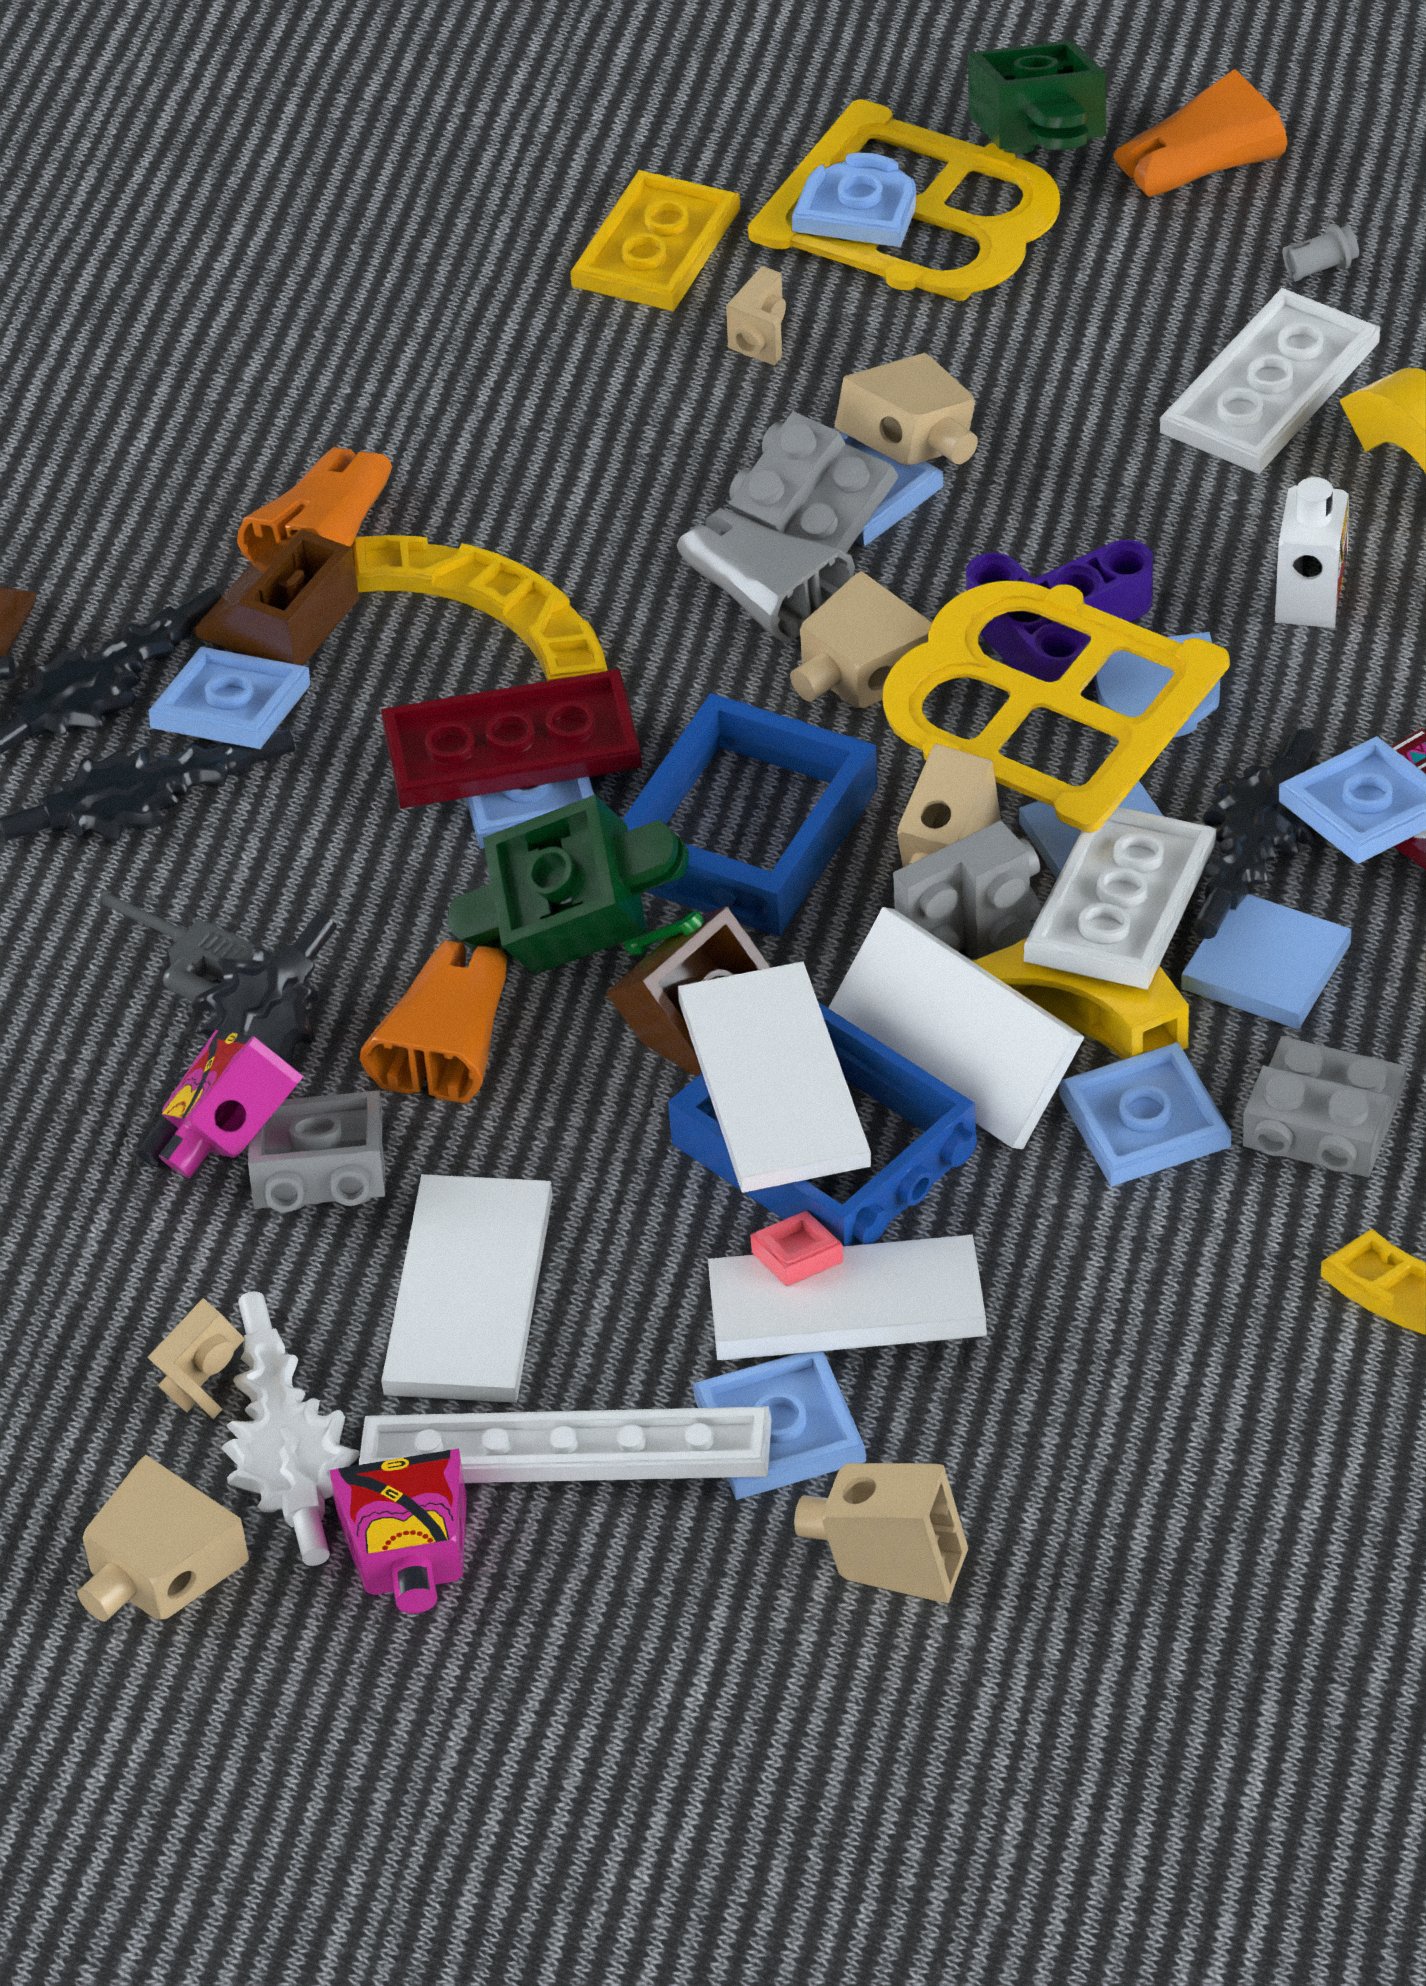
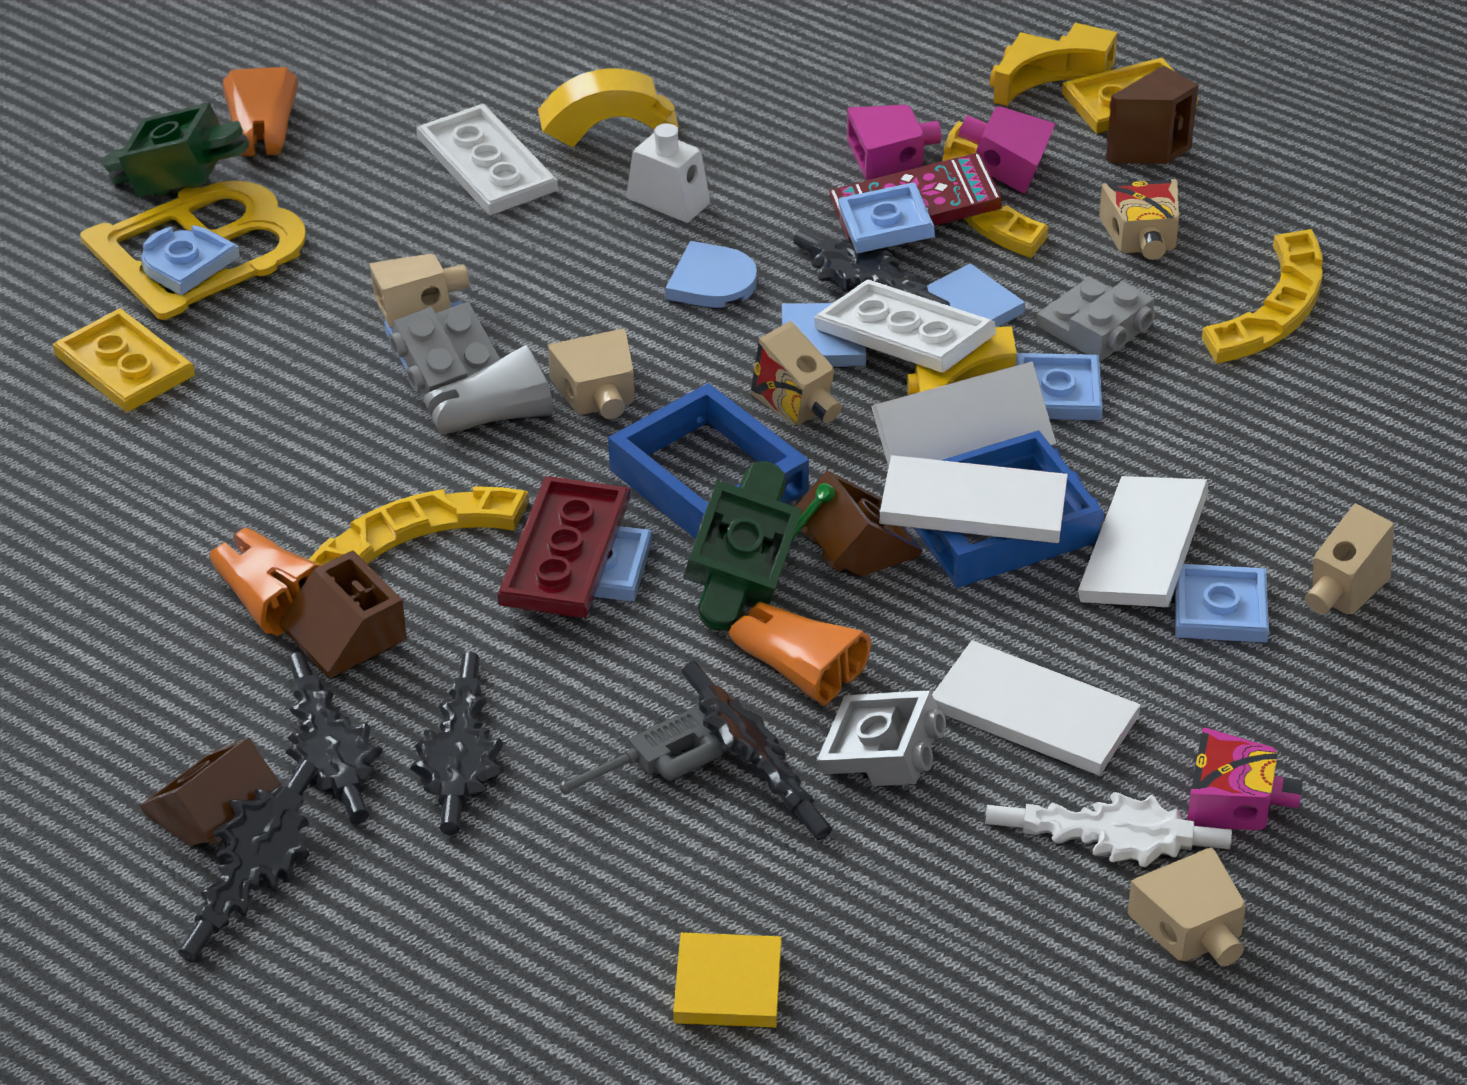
camera: 70 degrees left, 5 degrees down
(194, 1352) = (1037, 842): tan bracket -> none
(224, 1099) = (827, 756): dark pink torso -> none
(229, 697) = (413, 673): light blue tile -> none
(582, 1443) = (1199, 697): white tile -> none
(756, 317) = (256, 335): tan bracket -> none
(796, 1248) = (1099, 544): coral tile -> none
(956, 653) = (659, 329): yellow window -> none
(973, 891) = (868, 379): light grey plate -> none
(1111, 579) = (630, 295): dark purple beam -> none
(1322, 252) = (401, 98): light grey pin -> none

